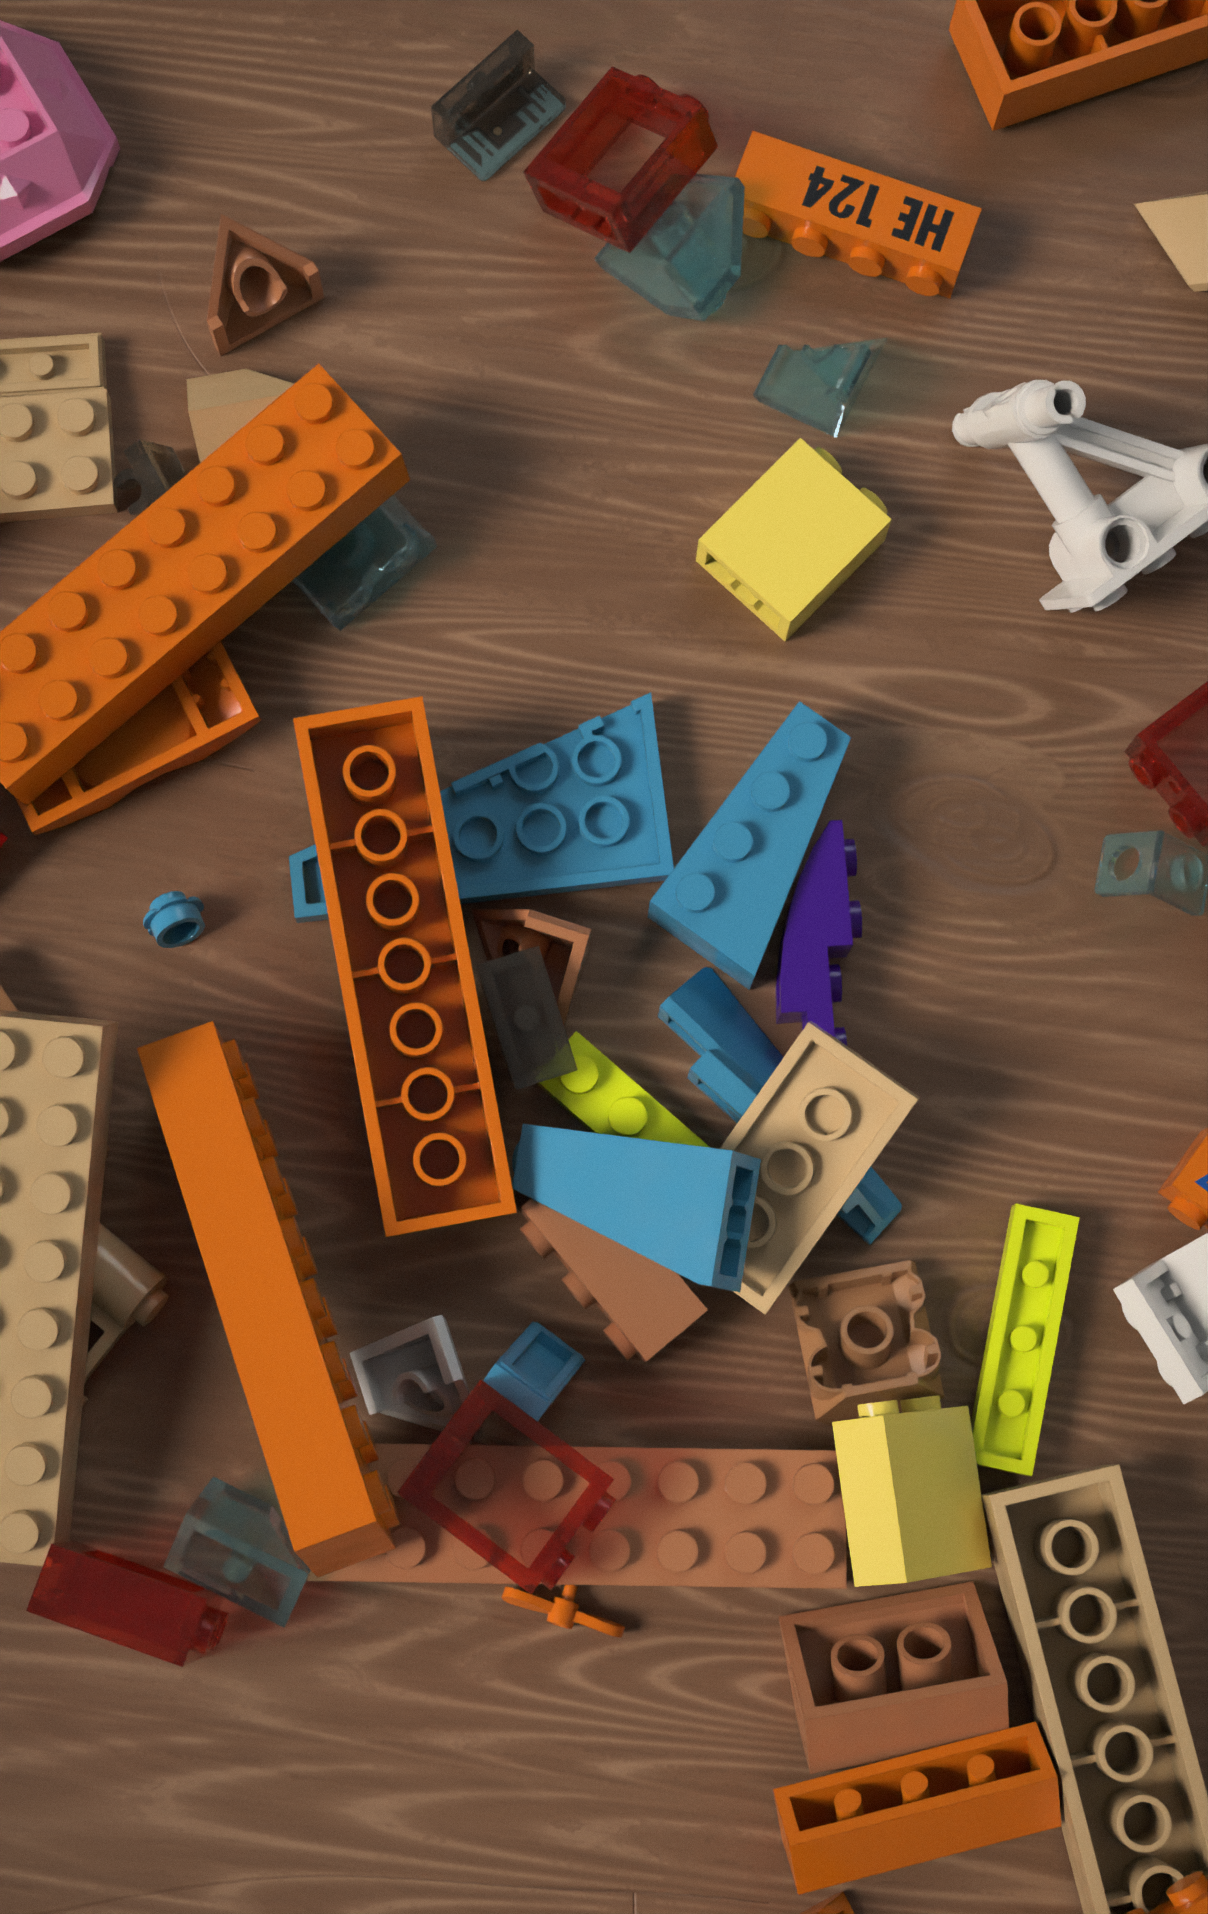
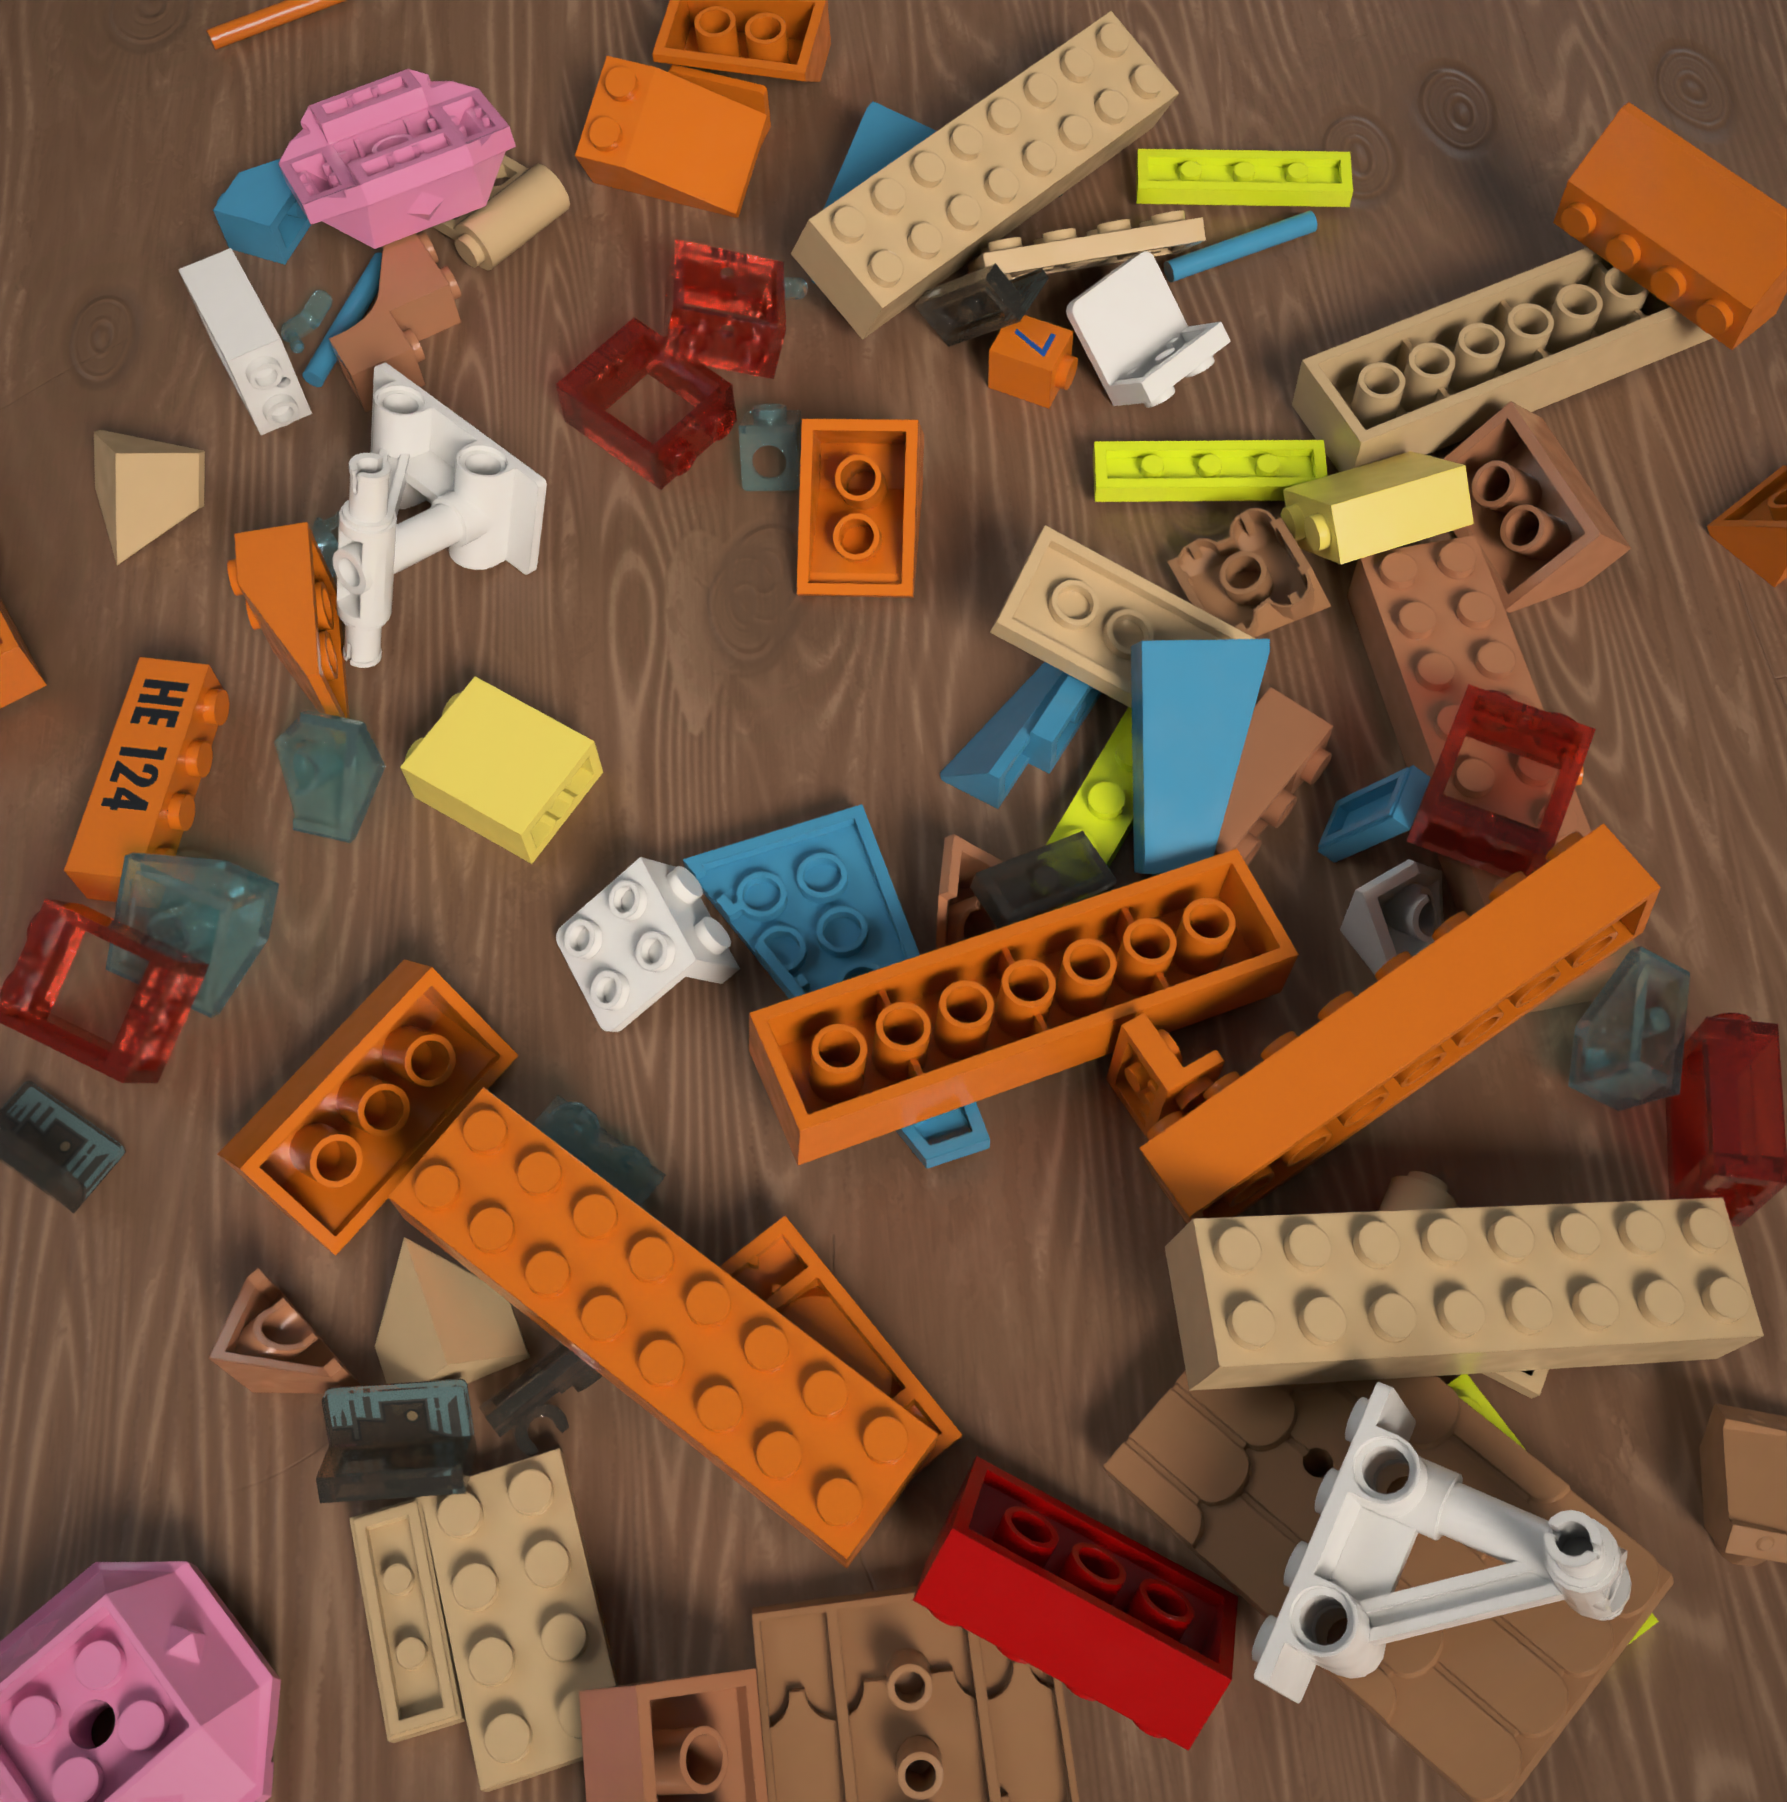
camera: 95 degrees left, 15 degrees down
(144, 373) = (397, 1441): none -> clear smoke panel
(174, 919) = (1017, 1266): dark azure plate -> none
(304, 1069) = (1151, 1077): none -> orange bracket
(465, 381) = (368, 1104): none -> orange slope
(573, 648) = (643, 941): none -> white bracket
(744, 861) = (820, 739): dark azure wedge -> none
(818, 928) = (888, 686): dark purple slope -> none
(918, 1807) = (1627, 469): orange brick -> none
(986, 352) = (295, 606): none -> orange slope
(1043, 946) = (859, 507): none -> orange slope
(1112, 403) = (326, 540): none -> clear light blue piece

